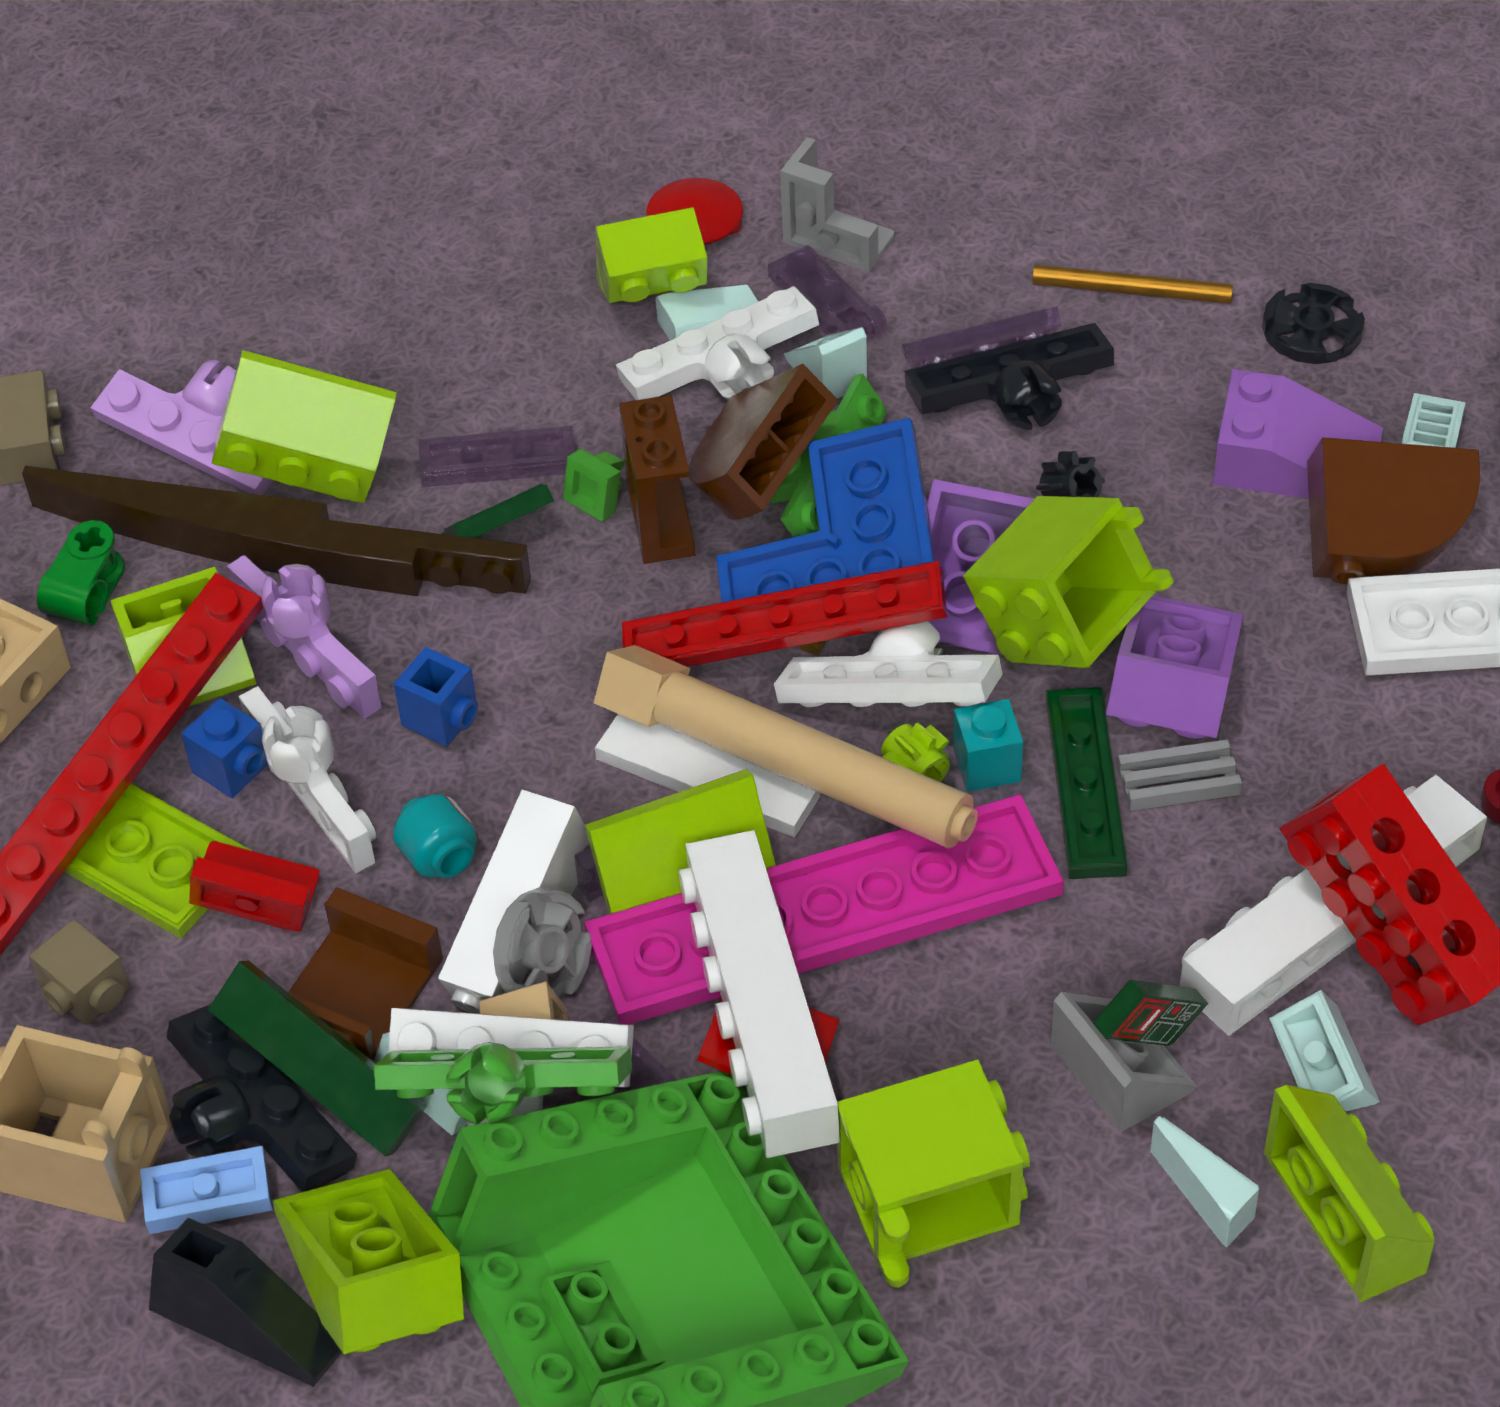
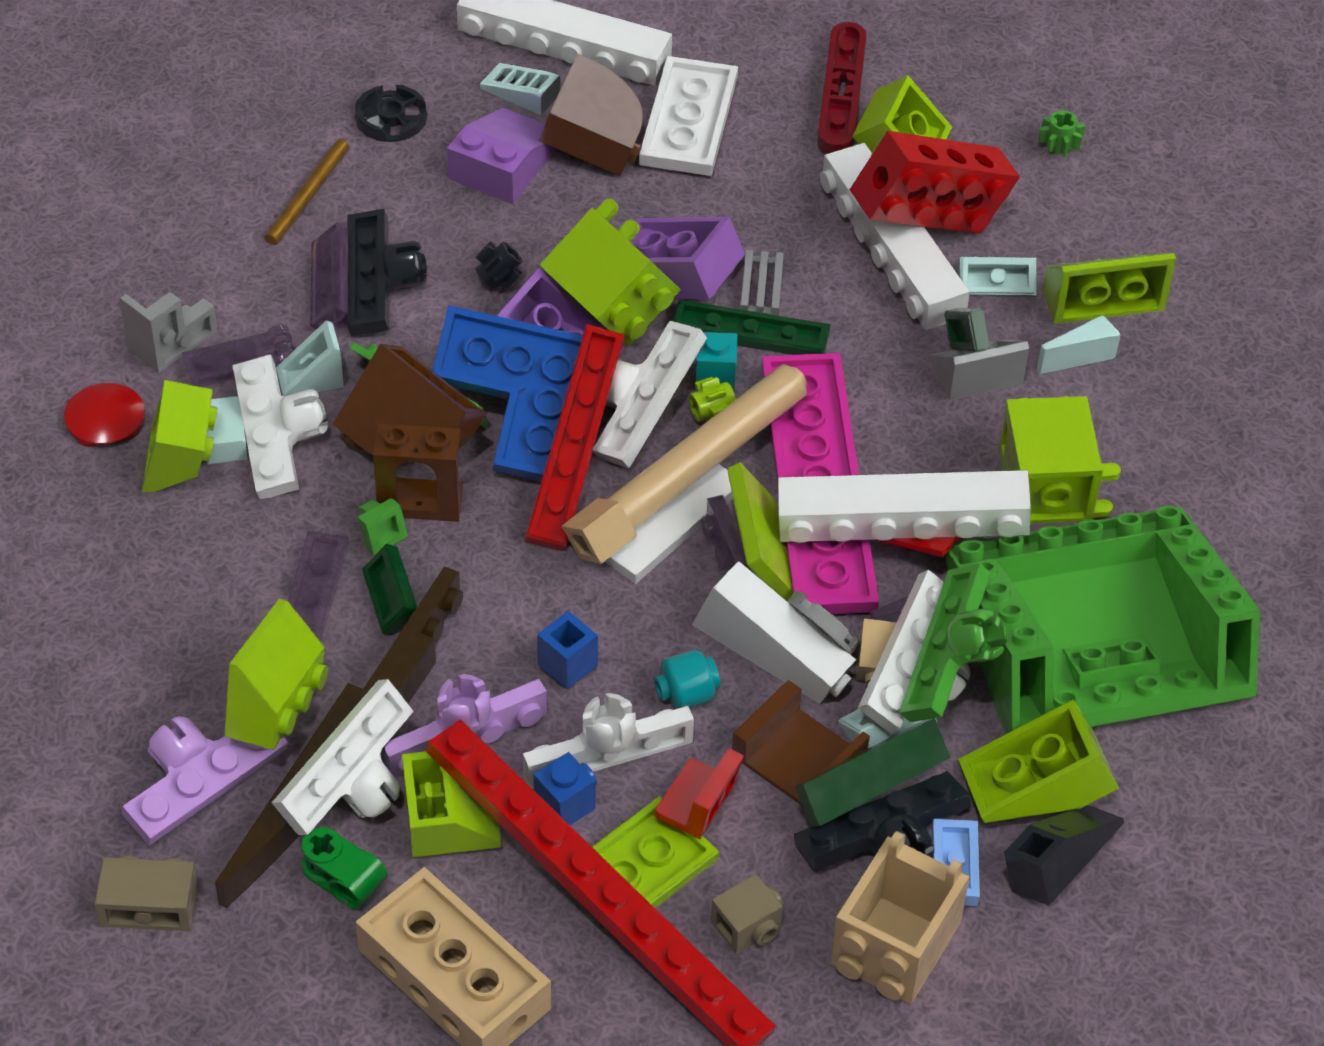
camera: 80 degrees left, 0 degrees up
(198, 524) = (348, 764): none -> white plate

